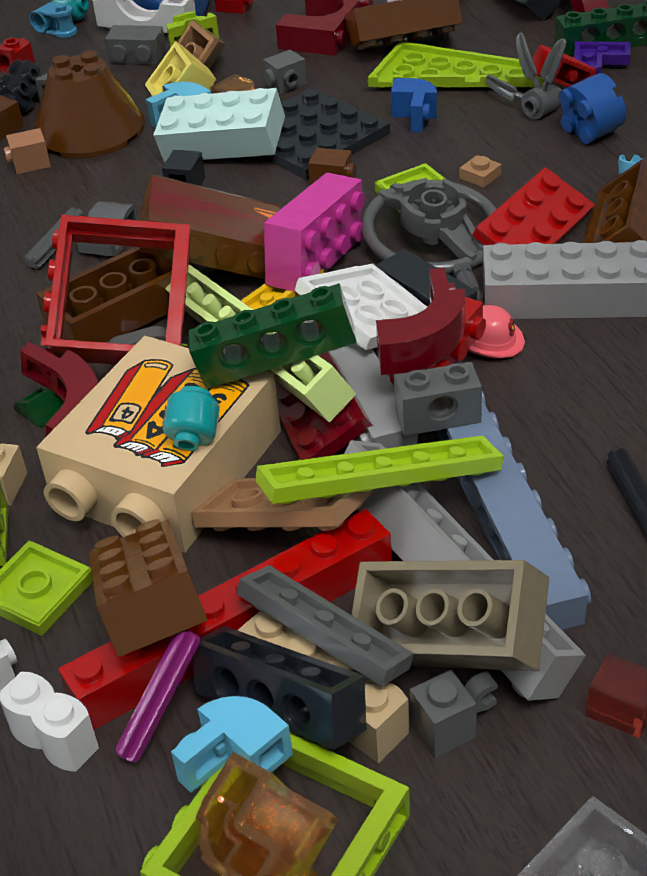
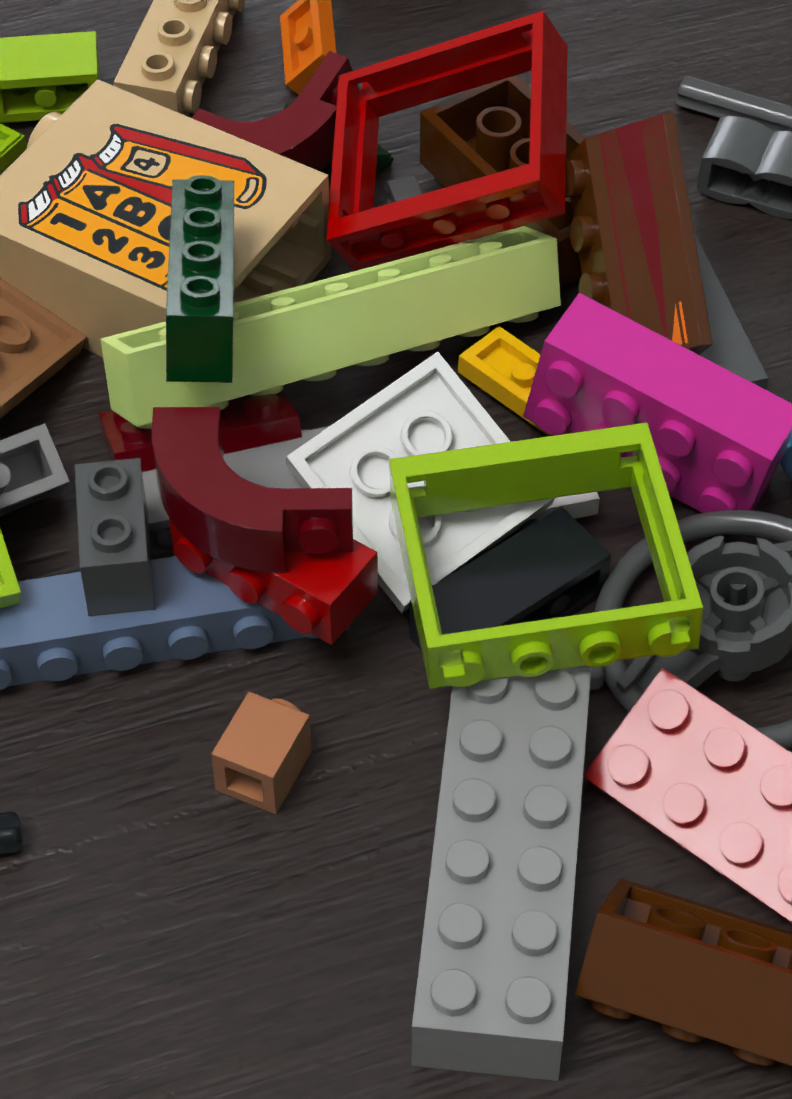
camera: 90 degrees right, 10 degrees up
(191, 418) = (72, 209): teal head -> none
(426, 206) = (535, 472): none -> lime window
(501, 335) = (380, 696): coral hat -> none
(544, 364) = (262, 751): none -> nougat brick

